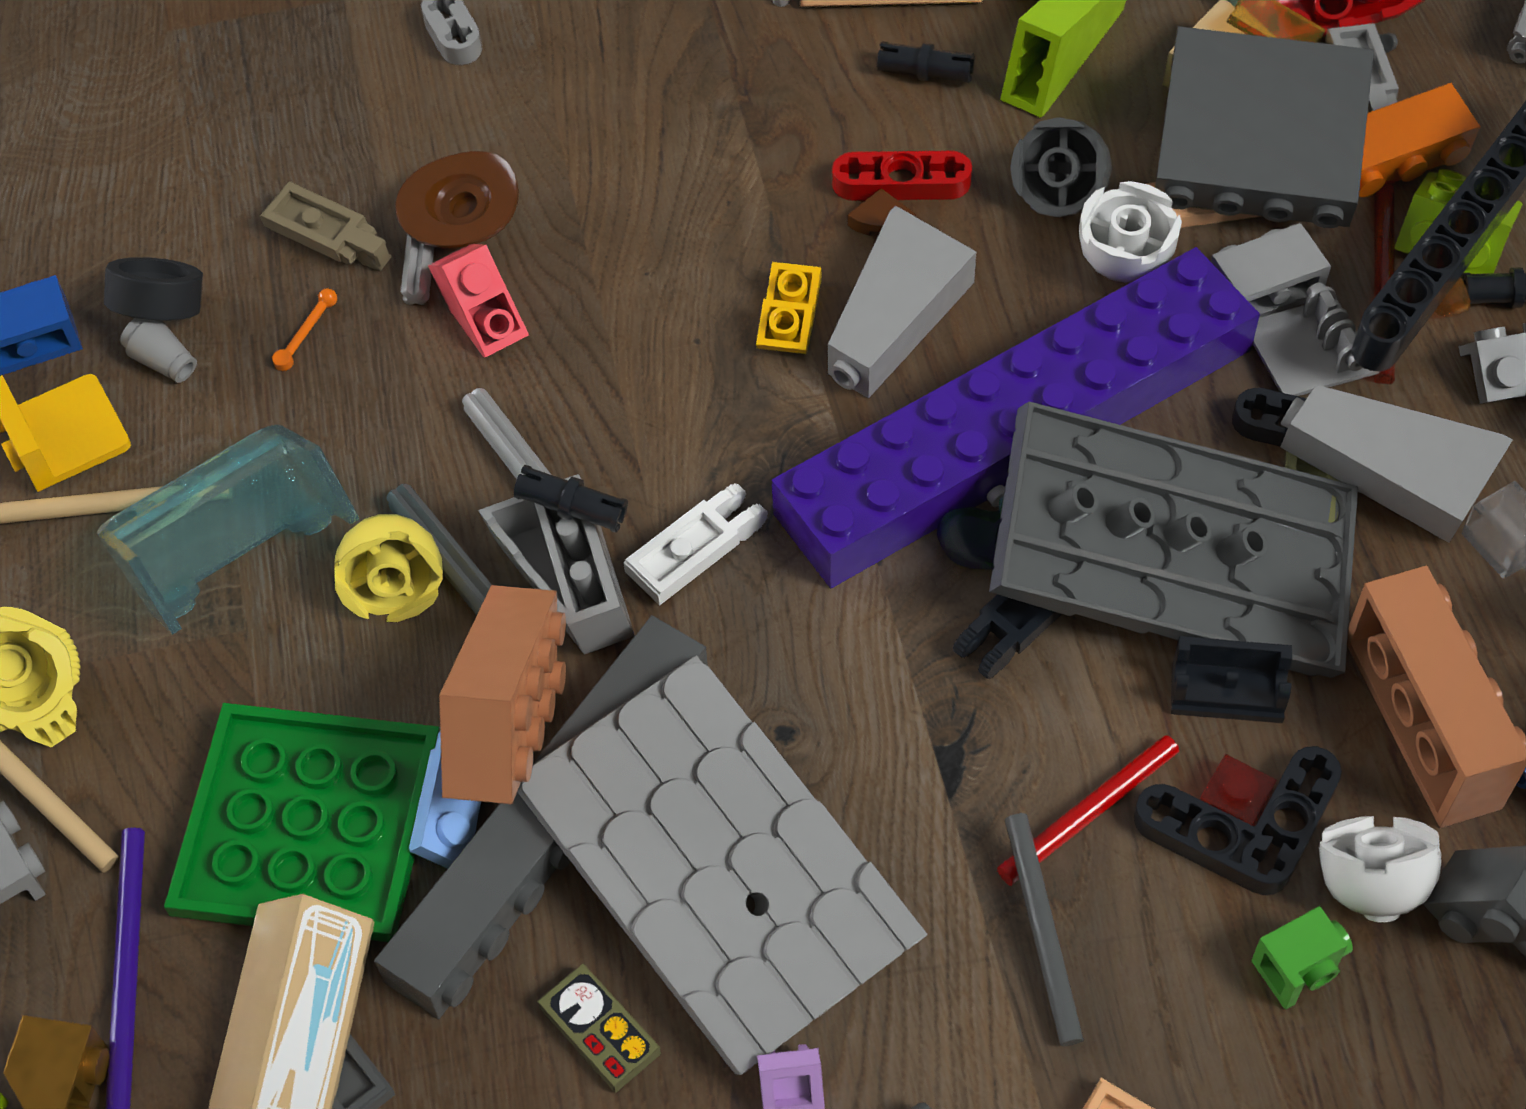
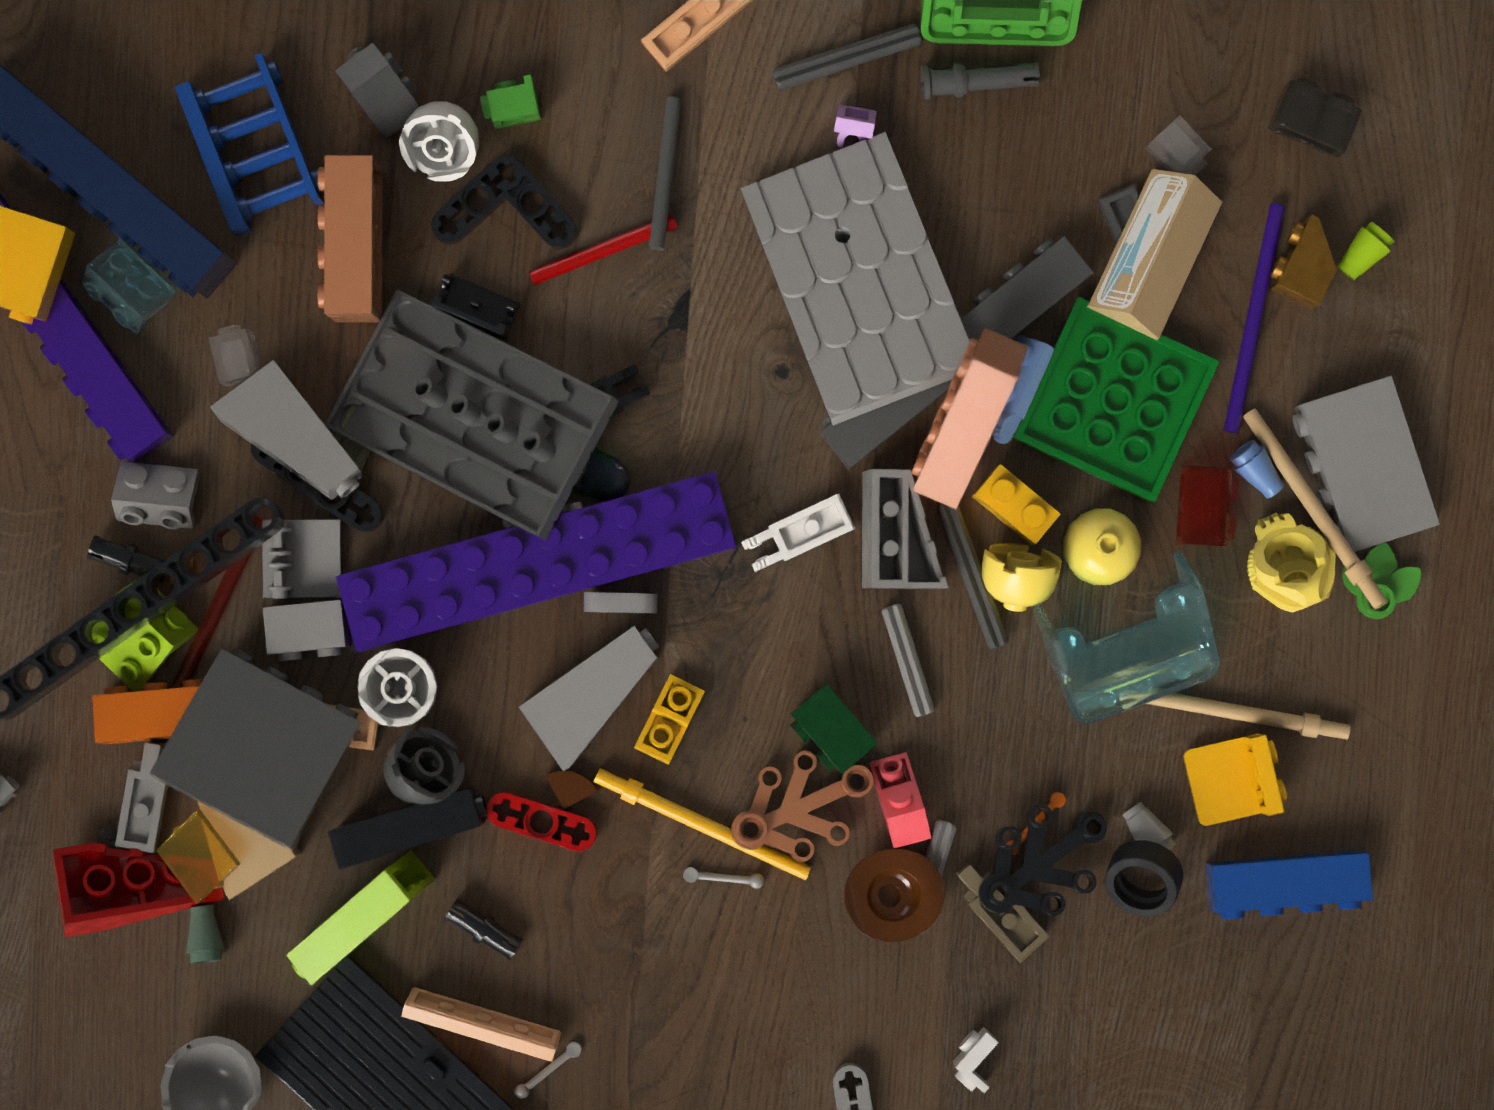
camera: 165 degrees left, 30 degrees up
(88, 791) = (1256, 467): none -> medium blue cone
(150, 719) = (1205, 506): none -> clear red brick
(285, 273) = (1037, 864): none -> black plant
(285, 639) = (1102, 546): none -> light yellow cylinder
(321, 89) = (974, 1050): none -> white bracket
(407, 642) = (1016, 505): none -> yellow brick
(570, 498) = (884, 559): black pin -> none
(582, 340) = (833, 730): none -> dark green brick
(599, 256) = (796, 810): none -> nougat plant
(599, 1028) = (961, 200): tile -> none
(706, 177) = (691, 875): none -> light grey hinge
(804, 228) = (632, 792): none -> yellow bar
(883, 399) = (620, 602): none -> light grey beam
(1088, 86) = (406, 827): none -> black slope
(1238, 789) = (503, 229): clear red plate -> none

